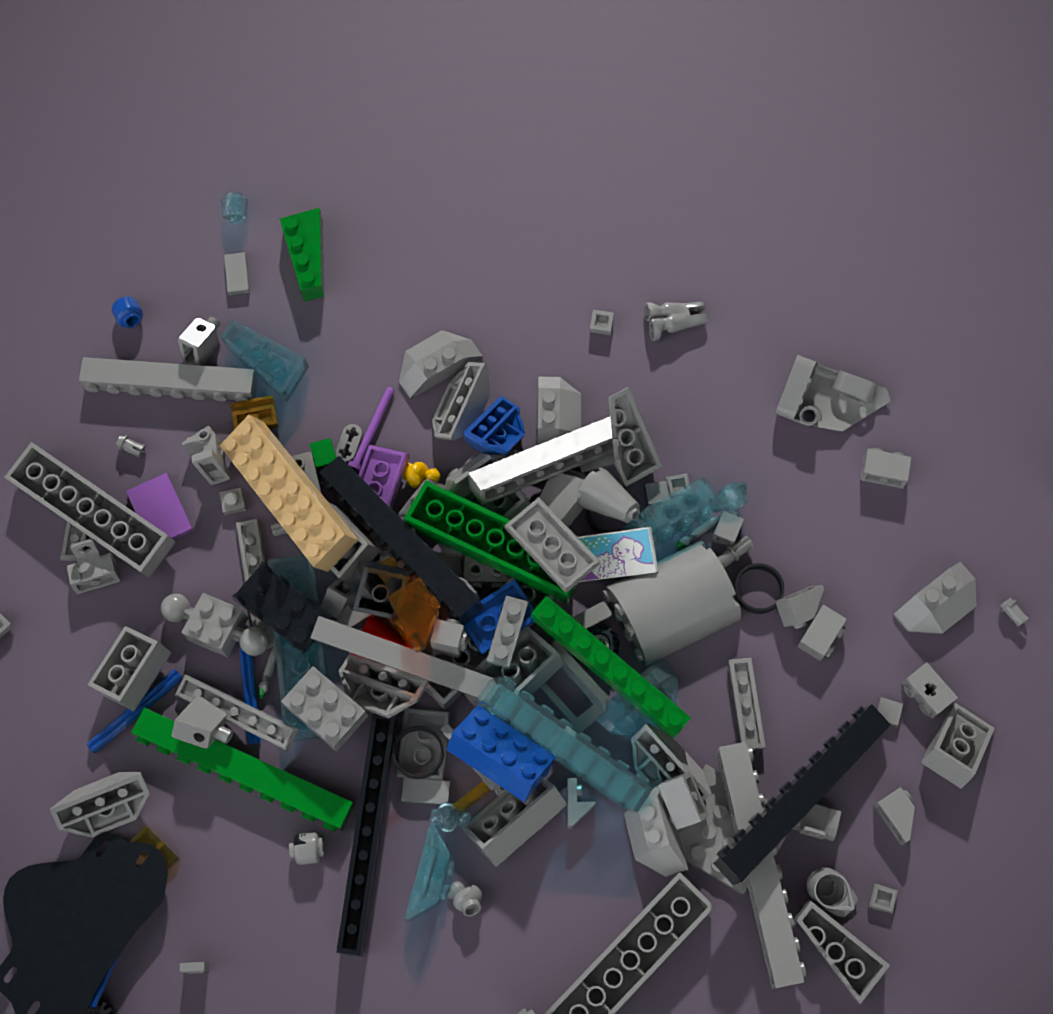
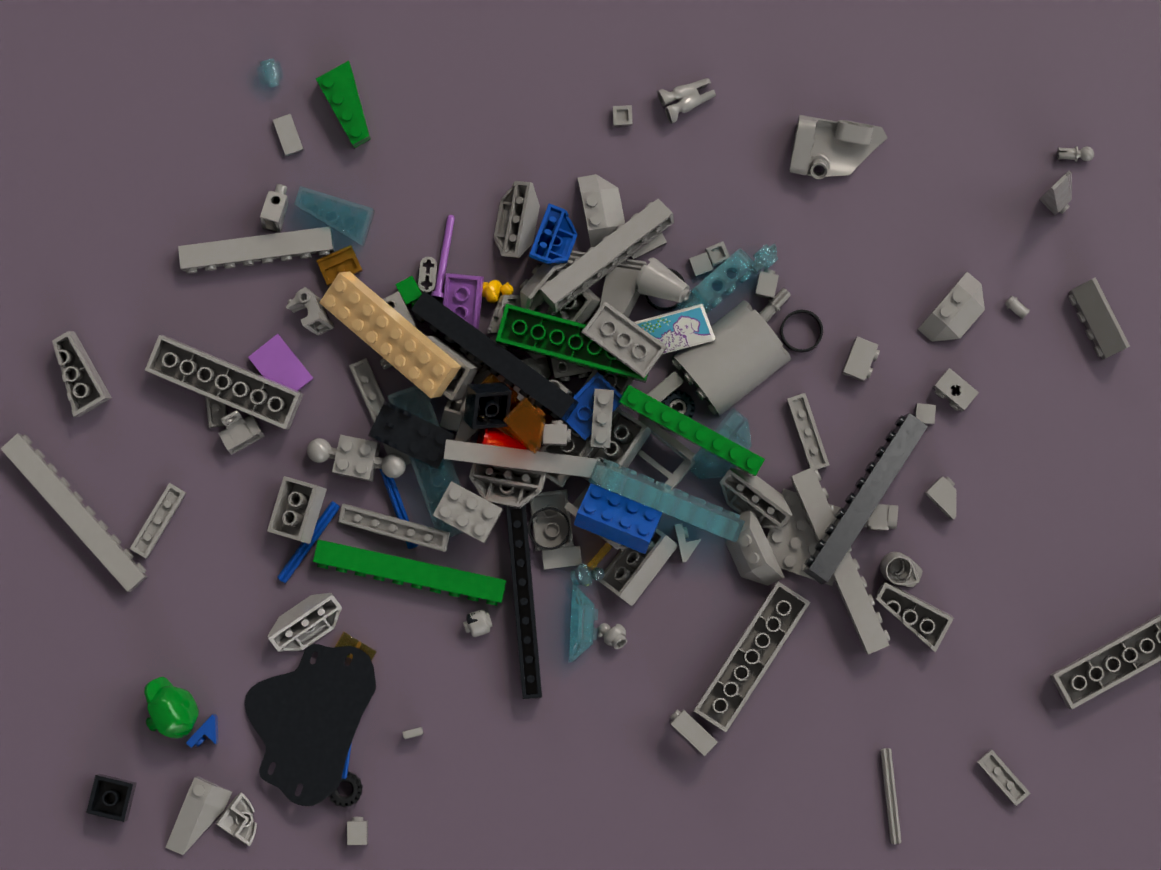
camera: 10 degrees left, 15 degrees up
(127, 312) = (202, 193): blue head -> none
(130, 446) = (237, 315): light grey pin -> none
(201, 724) = (370, 544): light grey torso -> none
(232, 501) = (340, 346): light grey plate -> none
(268, 672) = (409, 487): light grey piece -> none
(435, 361) = (484, 182): light grey wedge -> none
(631, 442) = (672, 231): light grey wedge -> none
(682, 800) = (770, 524): light grey brick -> none
(685, 541) = (741, 292): light grey piece -> none
(800, 606) = (838, 340): light grey slope -> none
(882, 898) = (942, 566): light grey tile -> none
(885, 468) = (891, 201): light grey brick -> none
(958, 746) = (985, 430): light grey slope -> none

